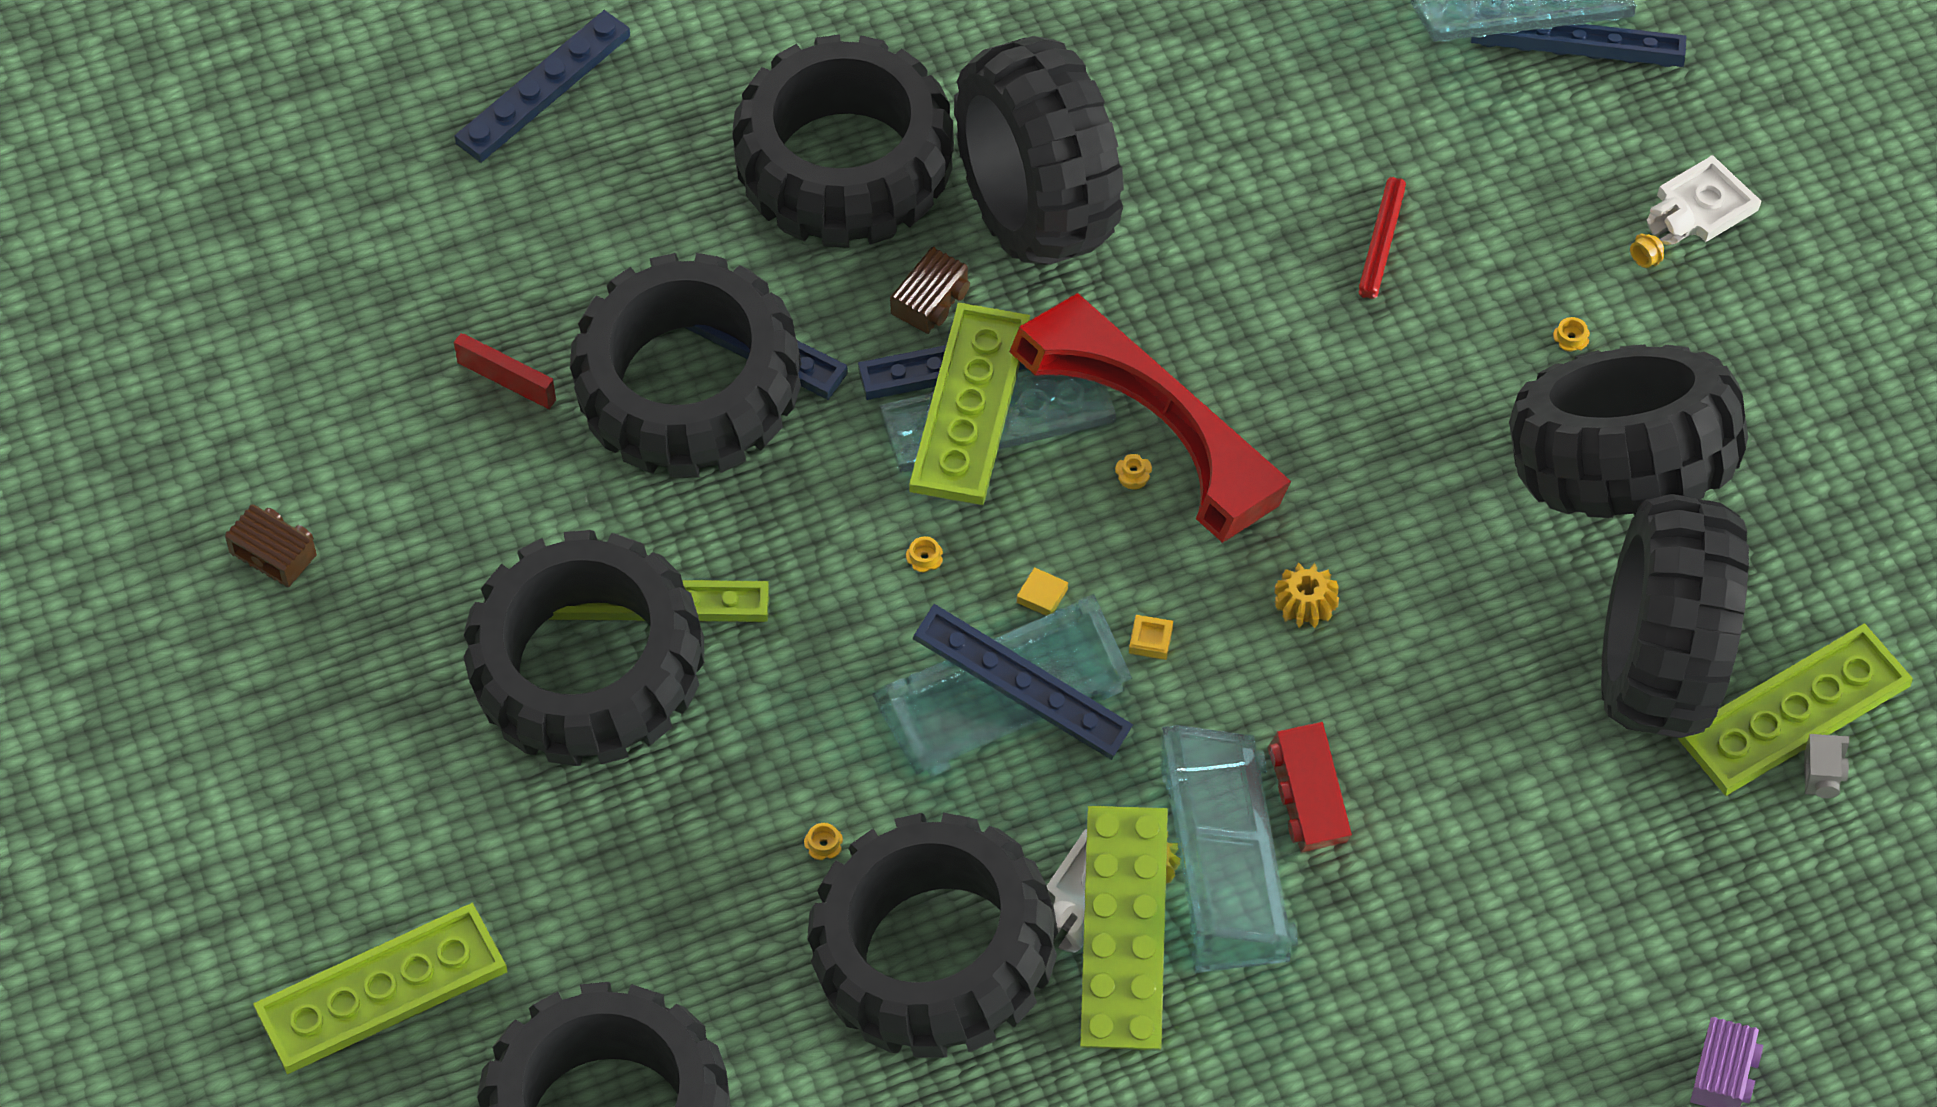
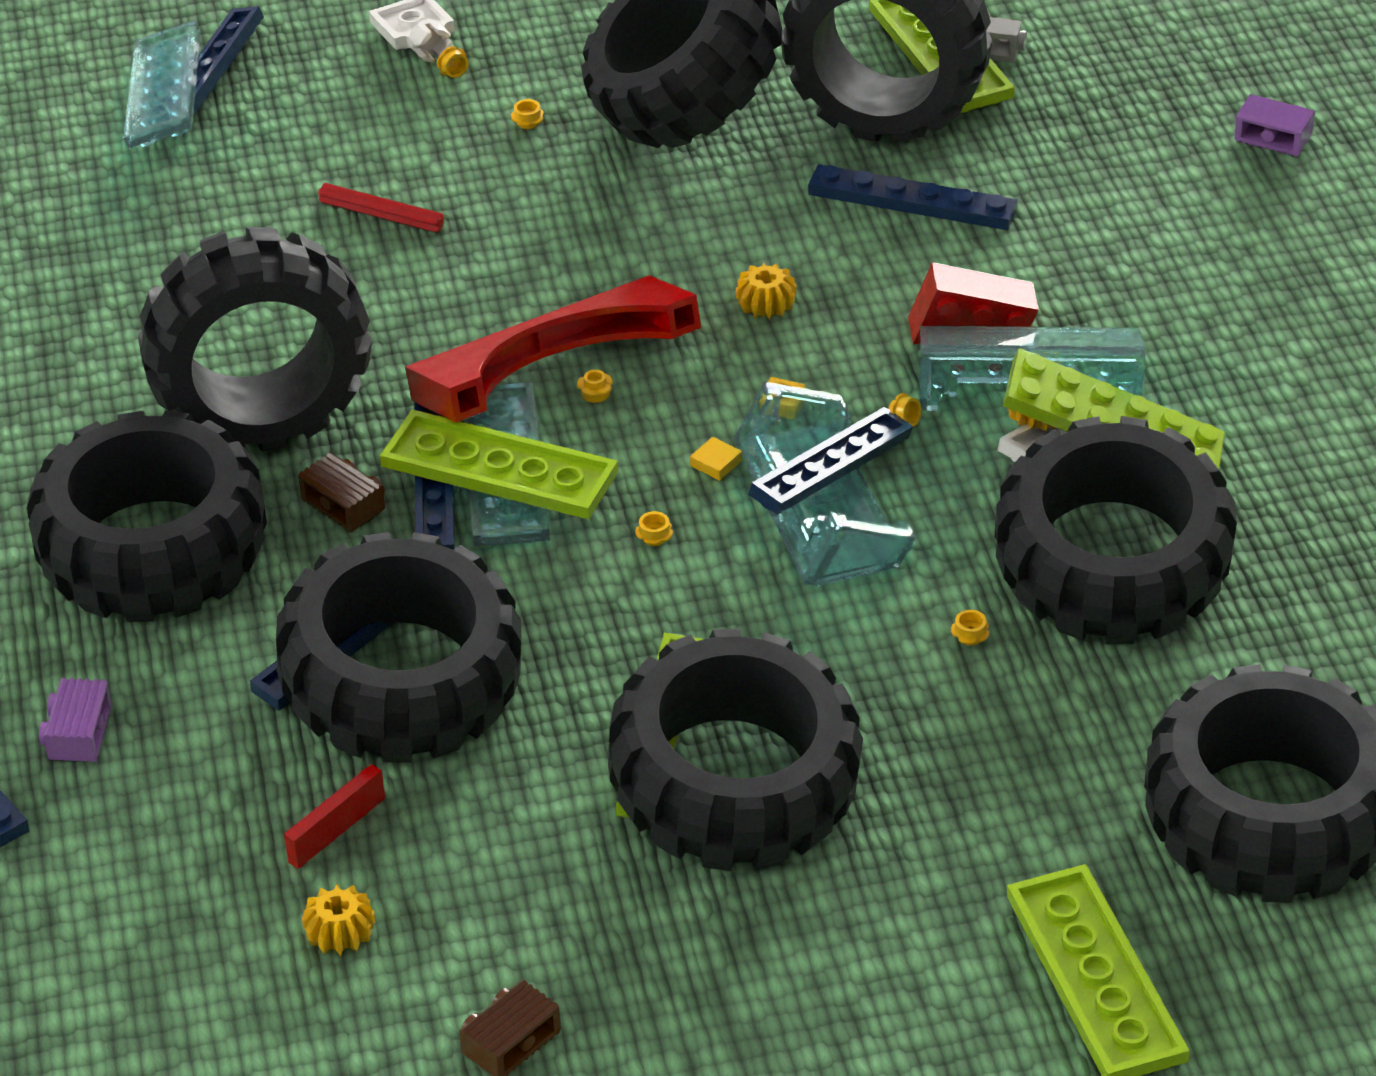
camera: 80 degrees left, 15 degrees down
(384, 398) = (338, 919): none -> yellow gear
(598, 159) = (76, 720): none -> medium lavender brick
(1138, 747) = (906, 408): none -> yellow plate
(1513, 717) = (912, 197): none -> dark blue plate

